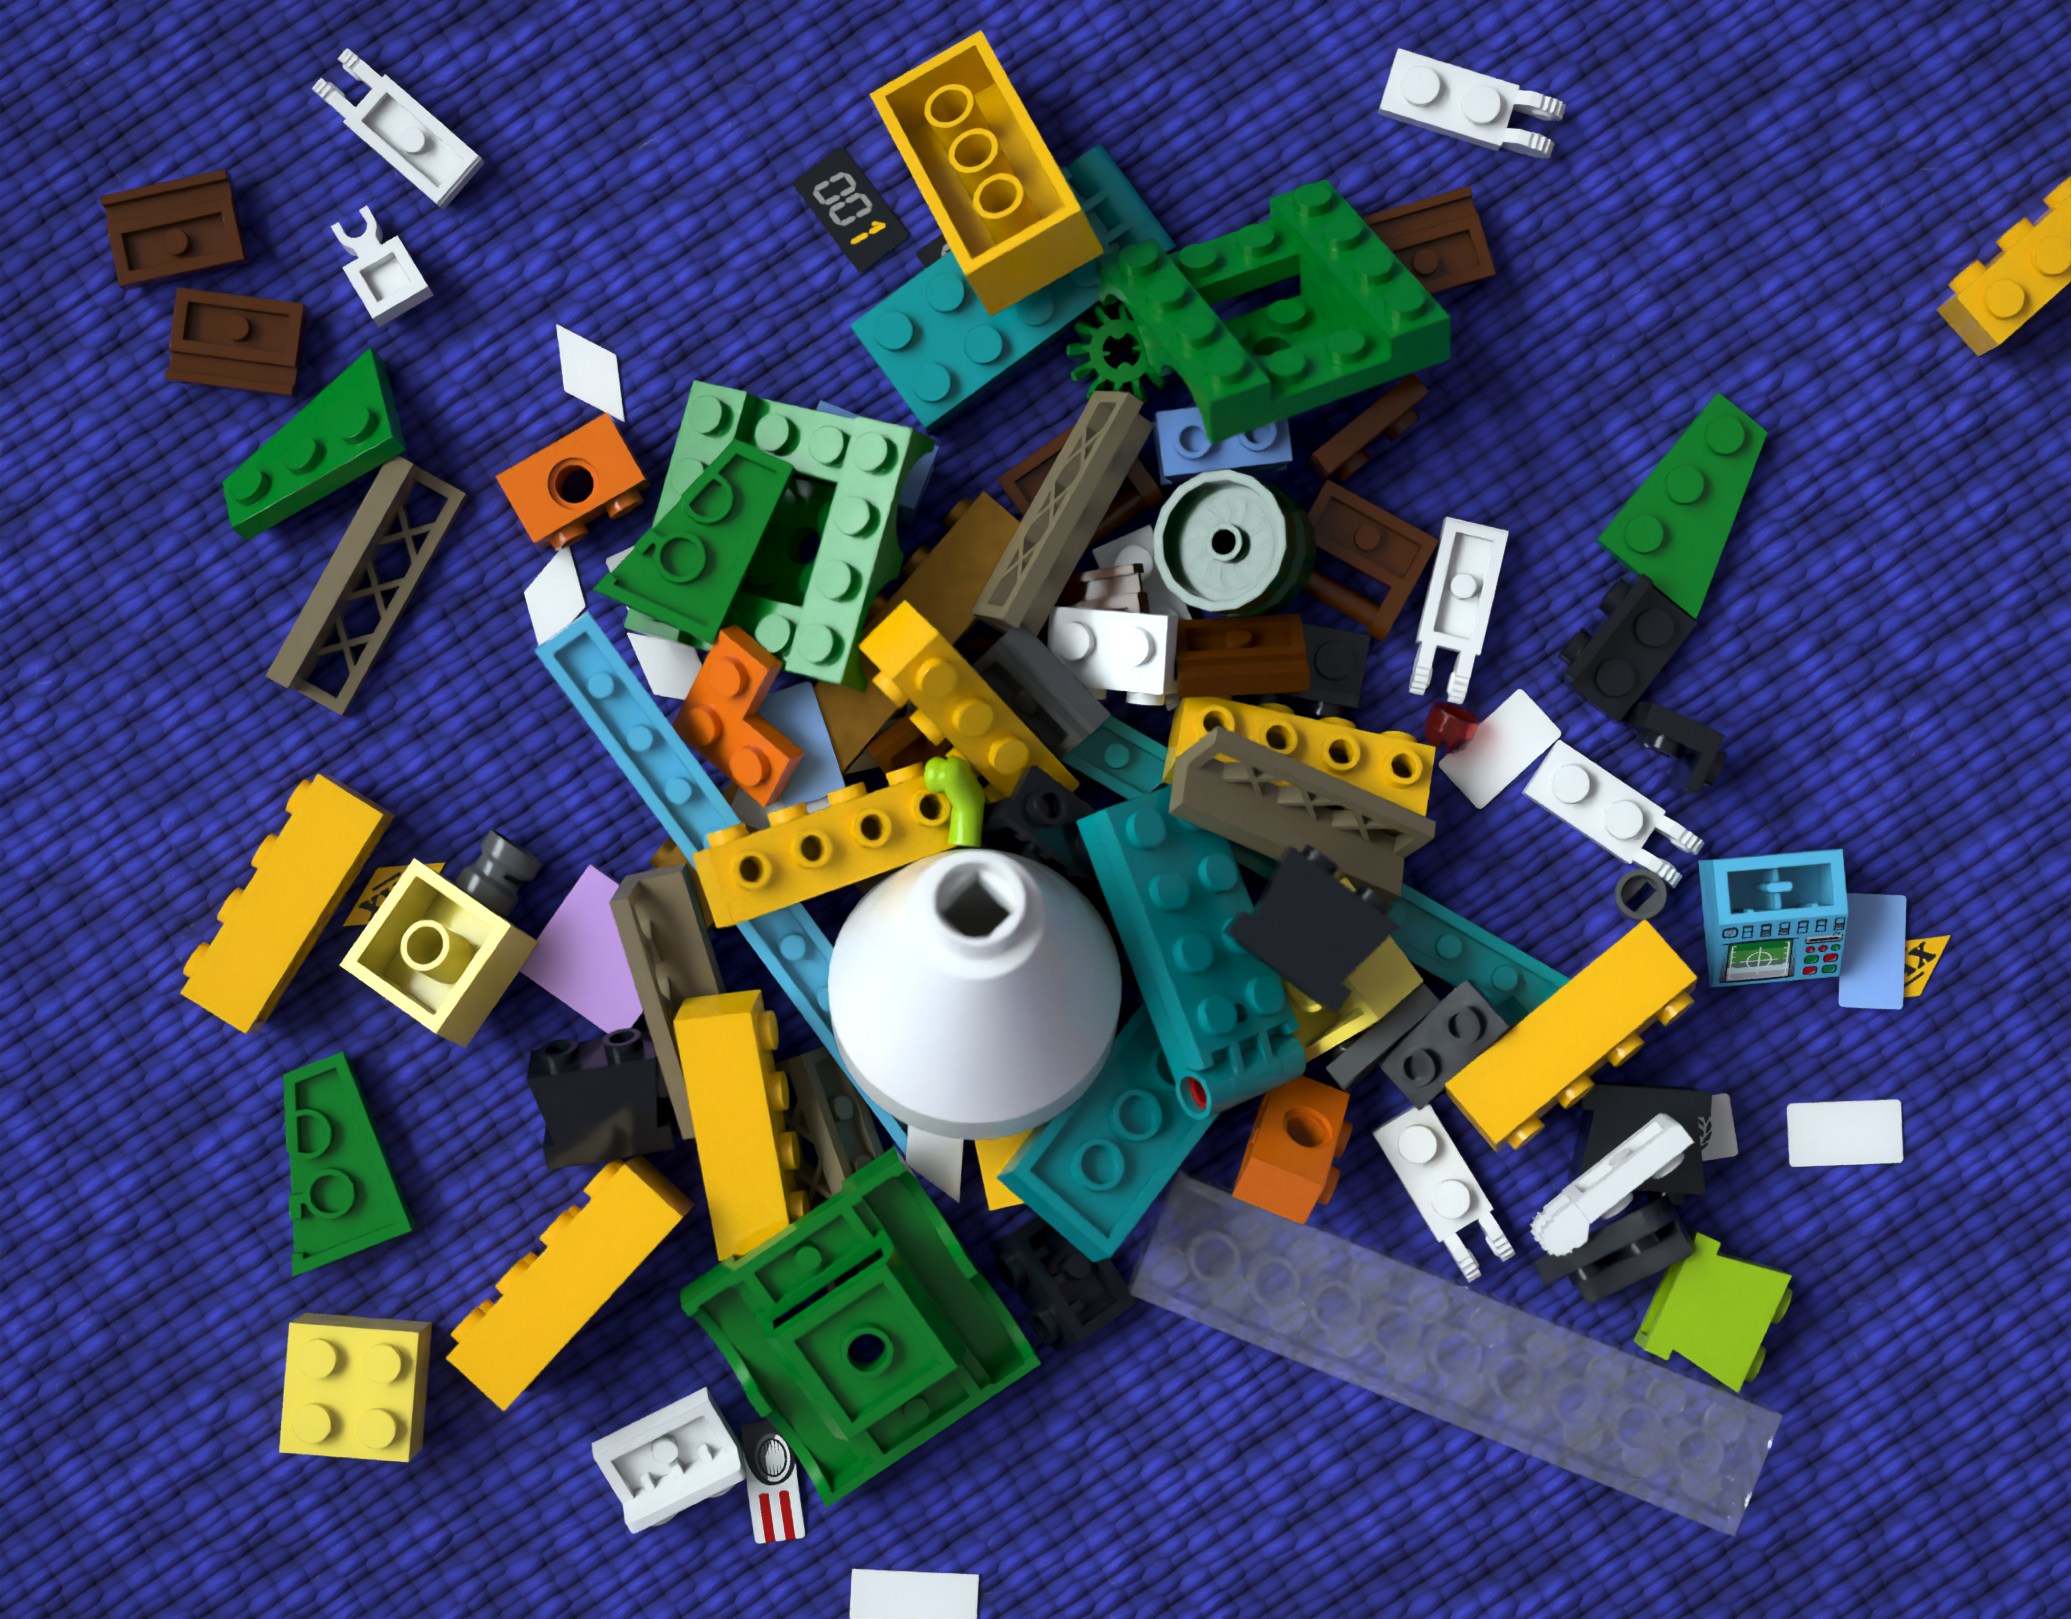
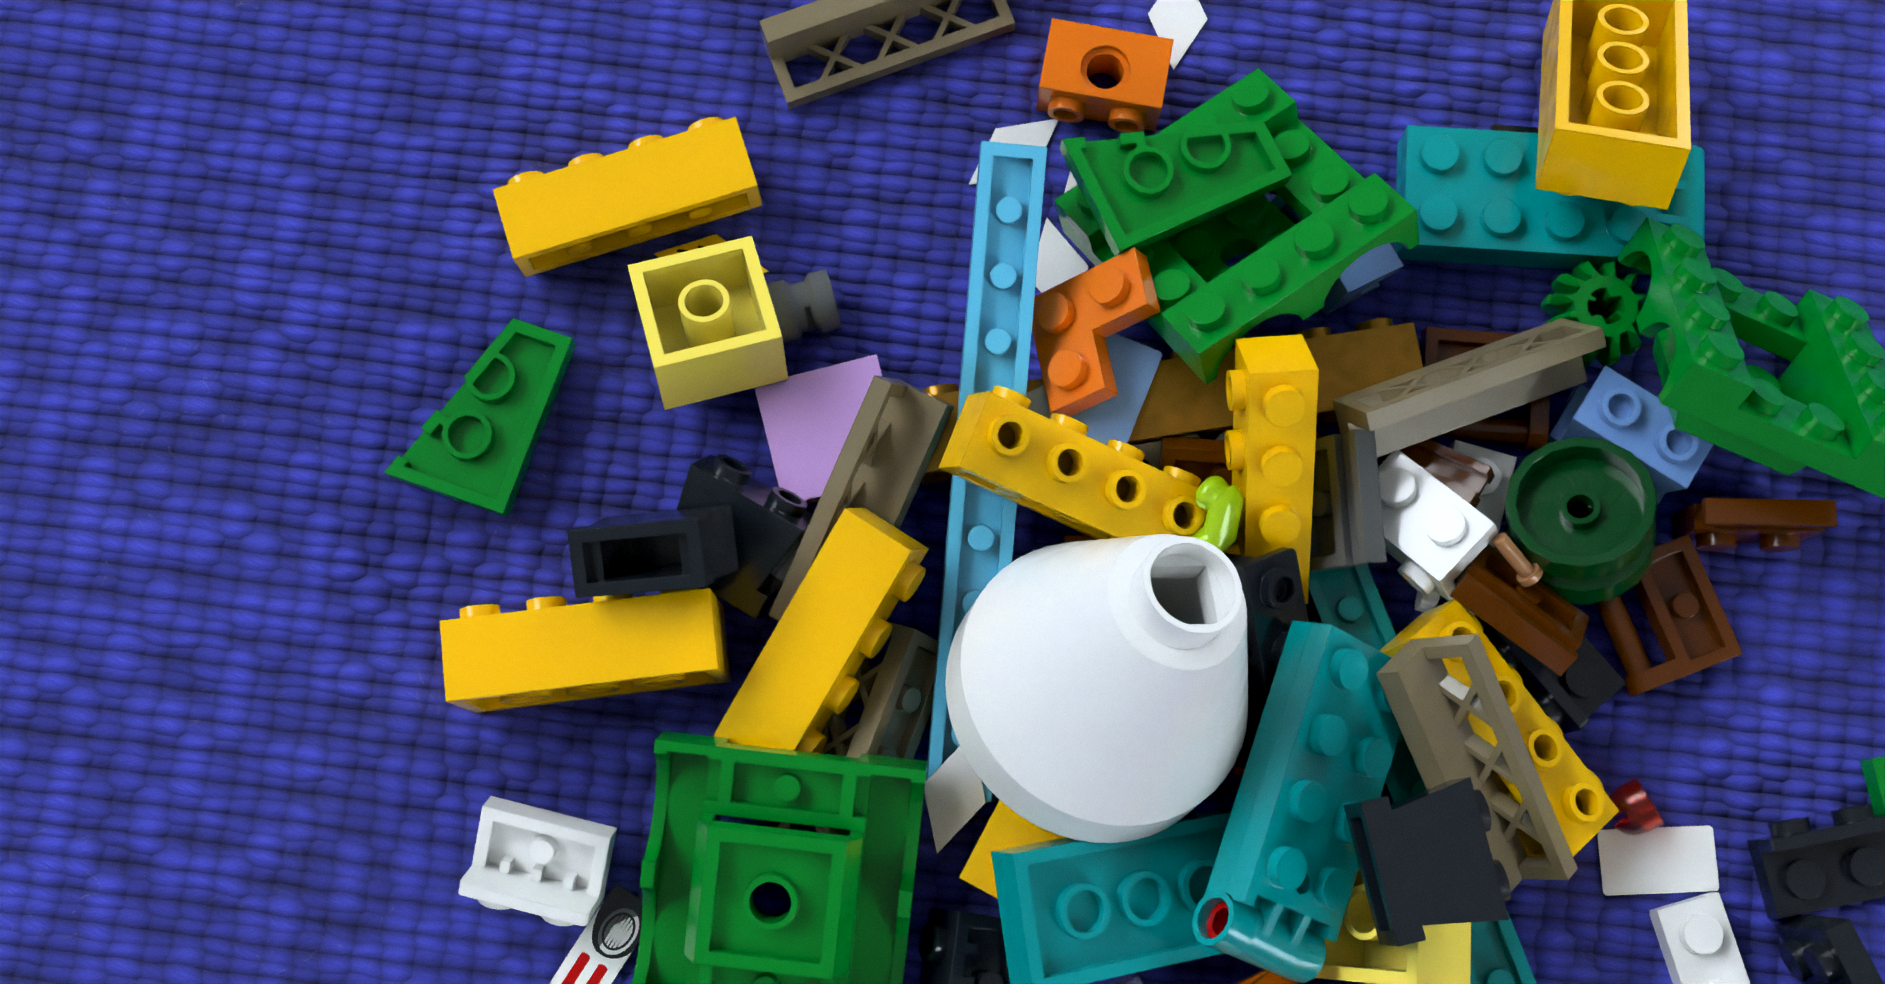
camera: 40 degrees right, 10 degrees down
(355, 1387) = (353, 596): light yellow brick -> none
(559, 1172) = (653, 551): none -> black hips
(850, 209) = (1467, 56): black sticker -> none
(1224, 625) = (1527, 572): none -> medium nougat piece
(1458, 602) = (1717, 716): white hinge -> none

